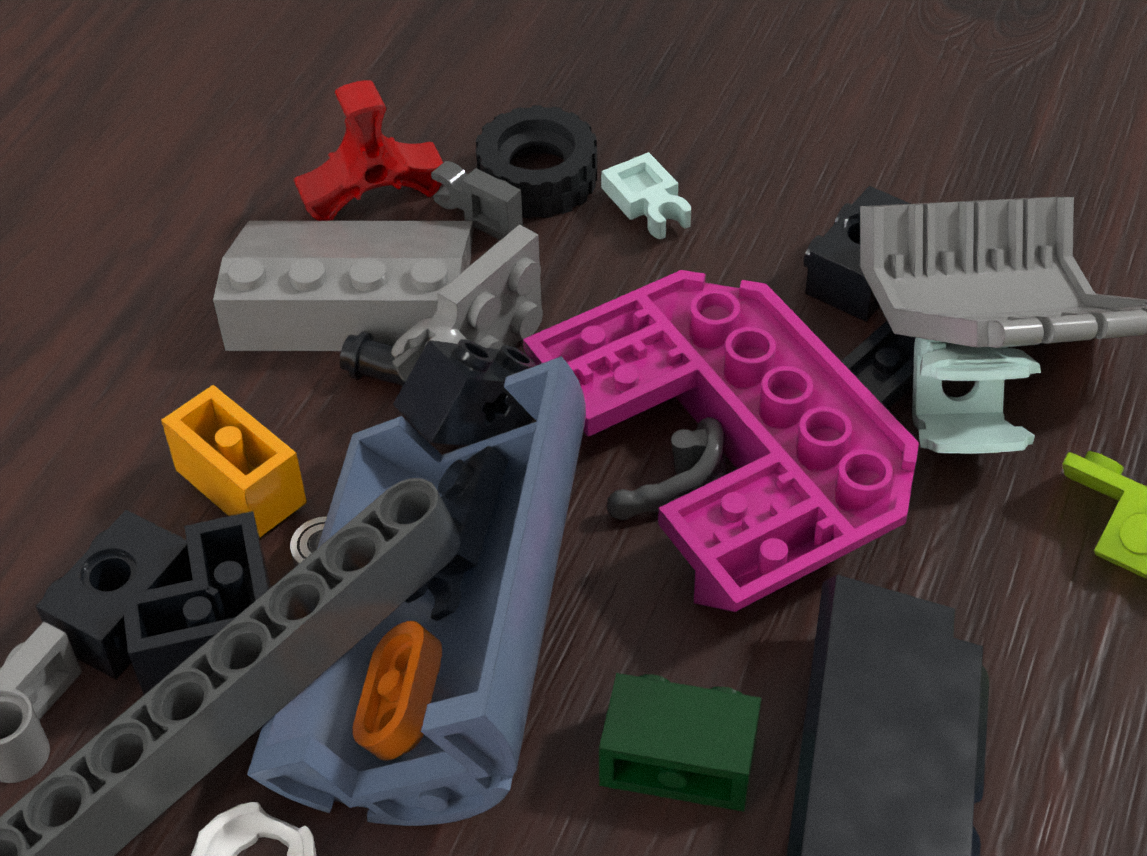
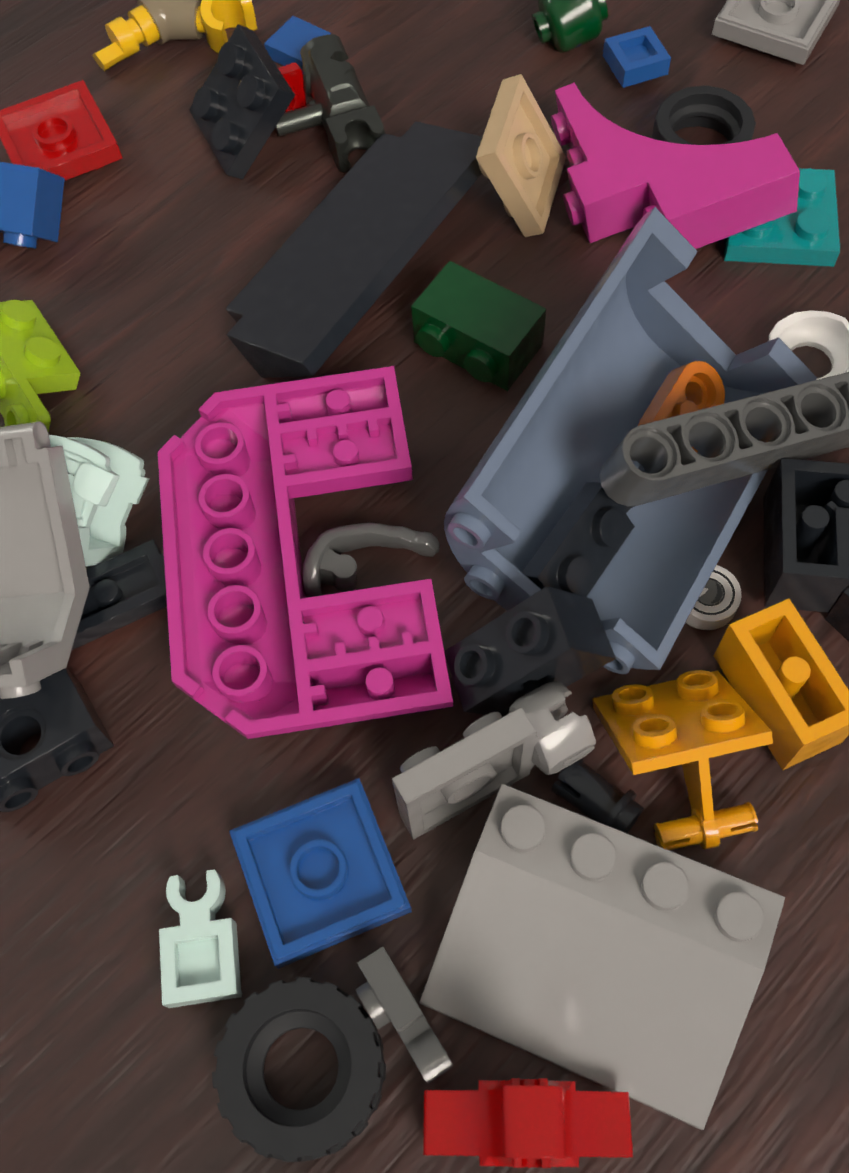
camera: 155 degrees left, 15 degrees up
(320, 401) = (686, 725): none -> light orange plate
(592, 255) = (319, 873): none -> blue plate

